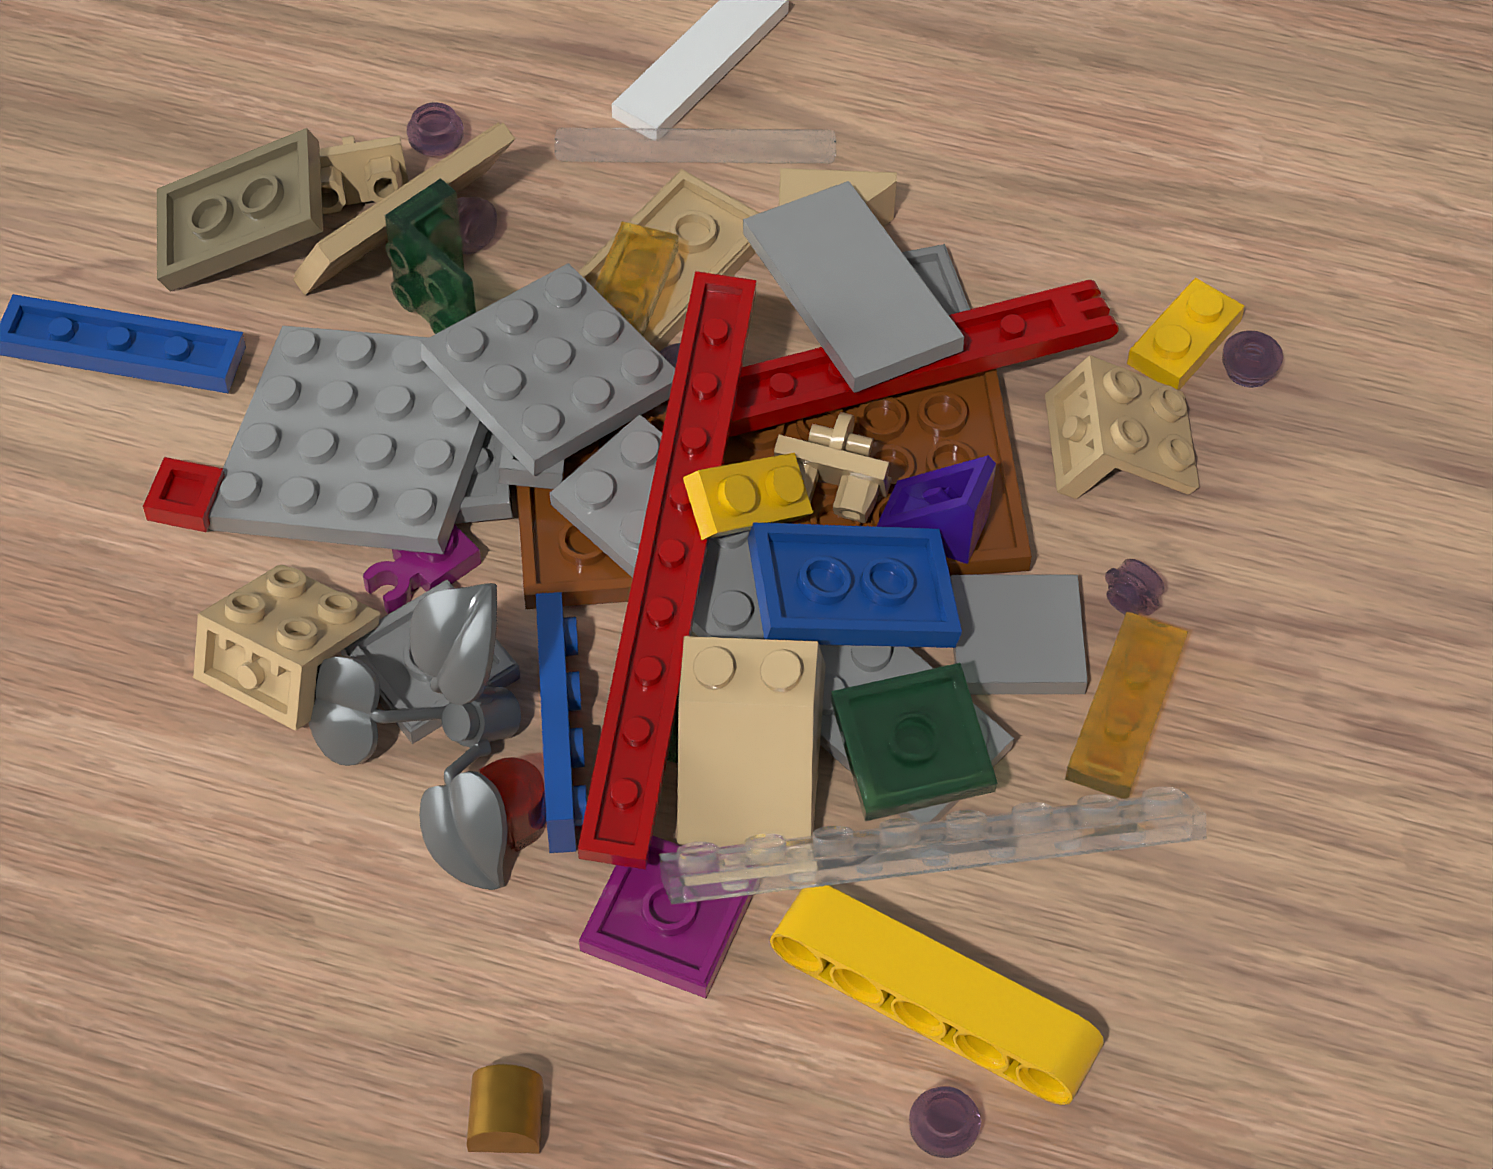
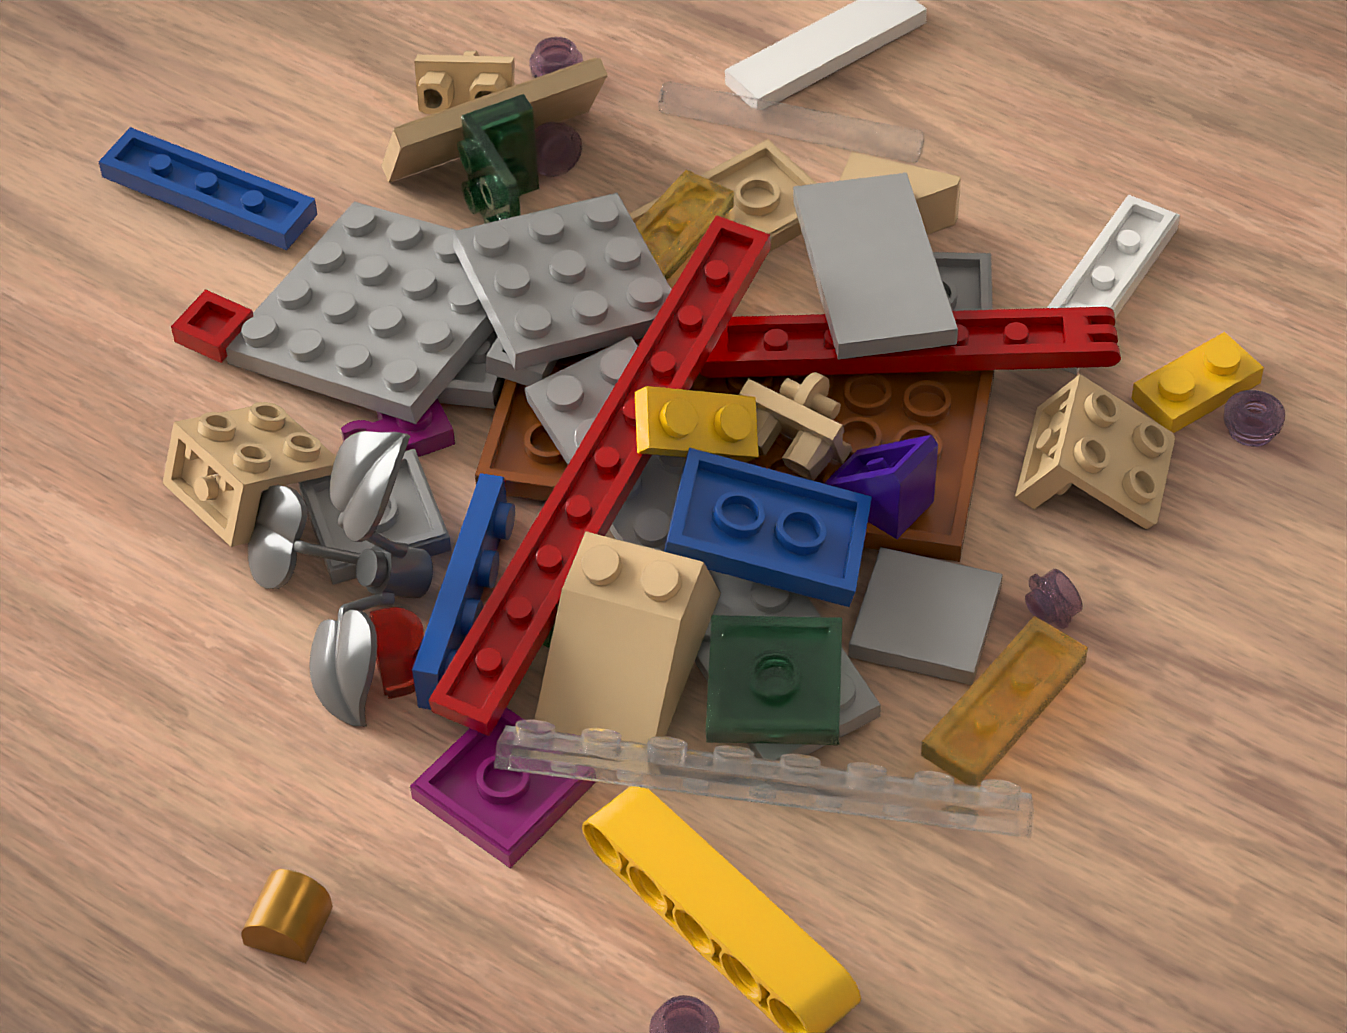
camera: 20 degrees right, 5 degrees down
(239, 210) = (349, 93): dark tan plate -> none
(1064, 225) = (1118, 258): none -> white tile

